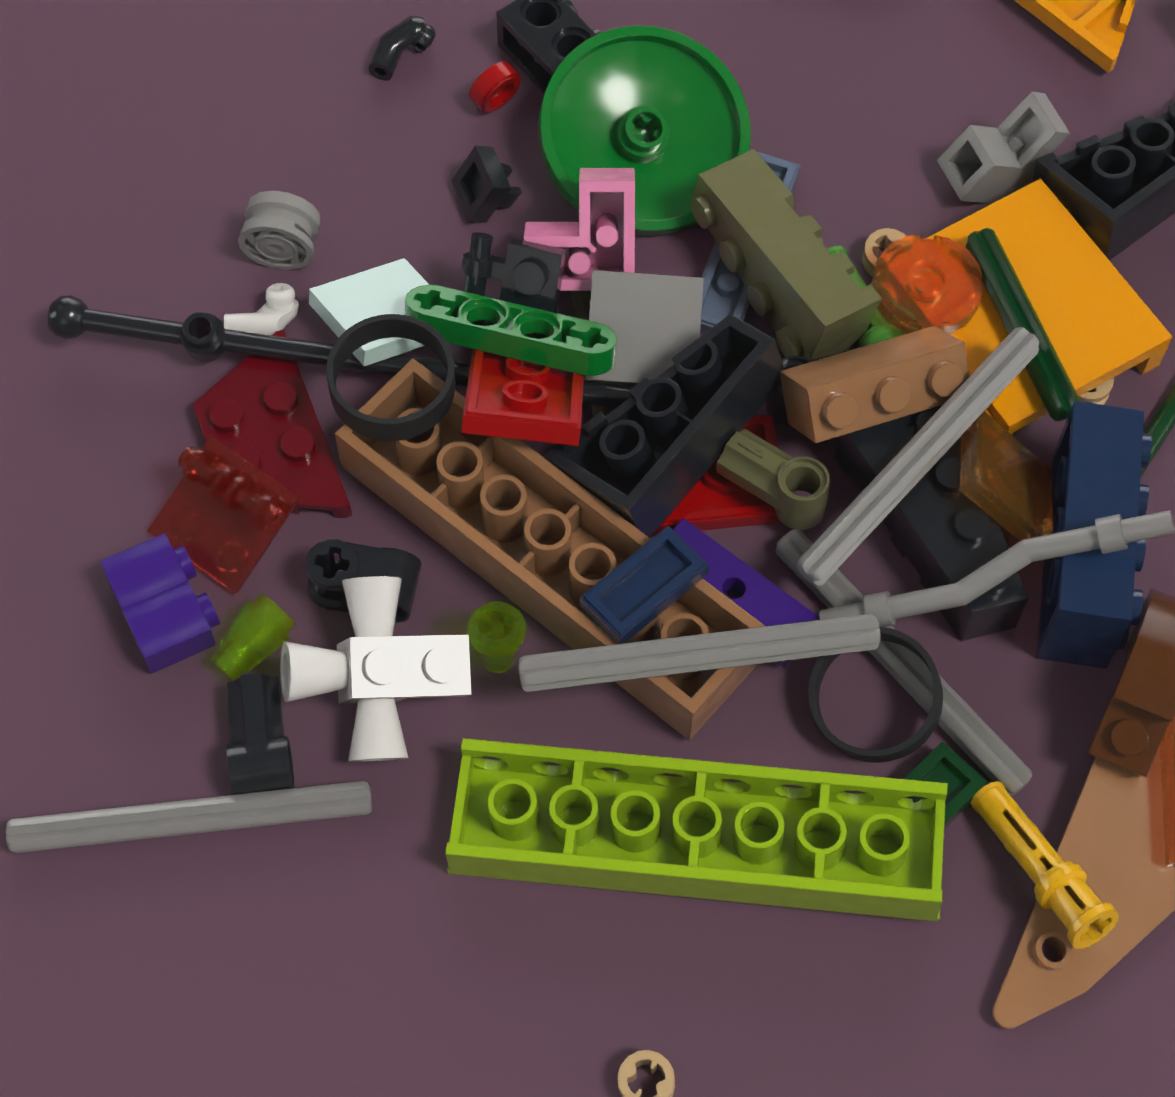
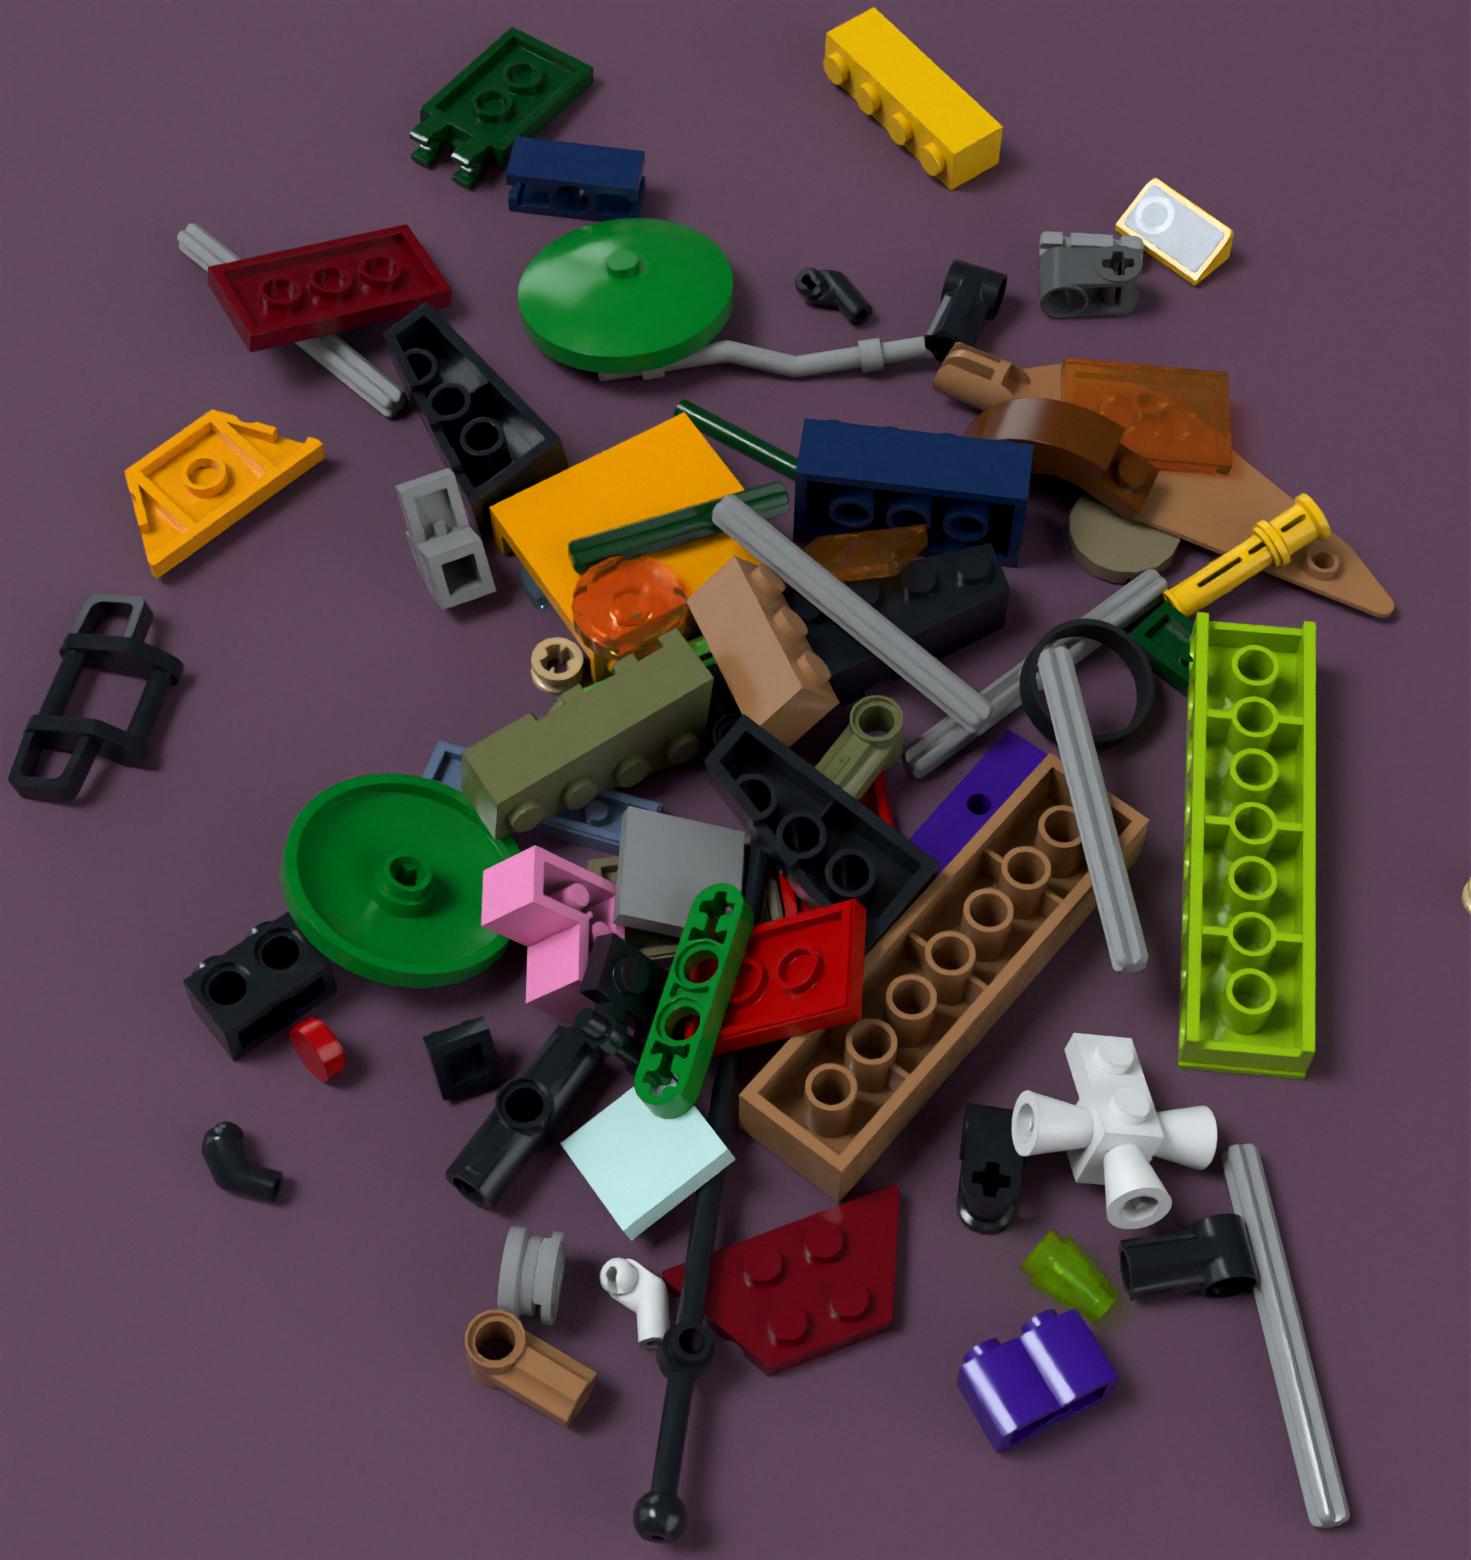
camera: 90 degrees left, 5 degrees down
(205, 232) = (532, 1371): none -> medium nougat piece
(223, 512) = (920, 1313): clear red hinge -> none
(385, 327) = (786, 1045): black tyre -> none
(404, 213) = (504, 1145): none -> black piece
(497, 634) = (1060, 1010): clear neon green cone -> none
(644, 585) = (1017, 857): dark blue tile -> none
(1059, 750) = (1114, 546): none -> dark tan tile
(1107, 534) = (1004, 667): light grey bar -> none

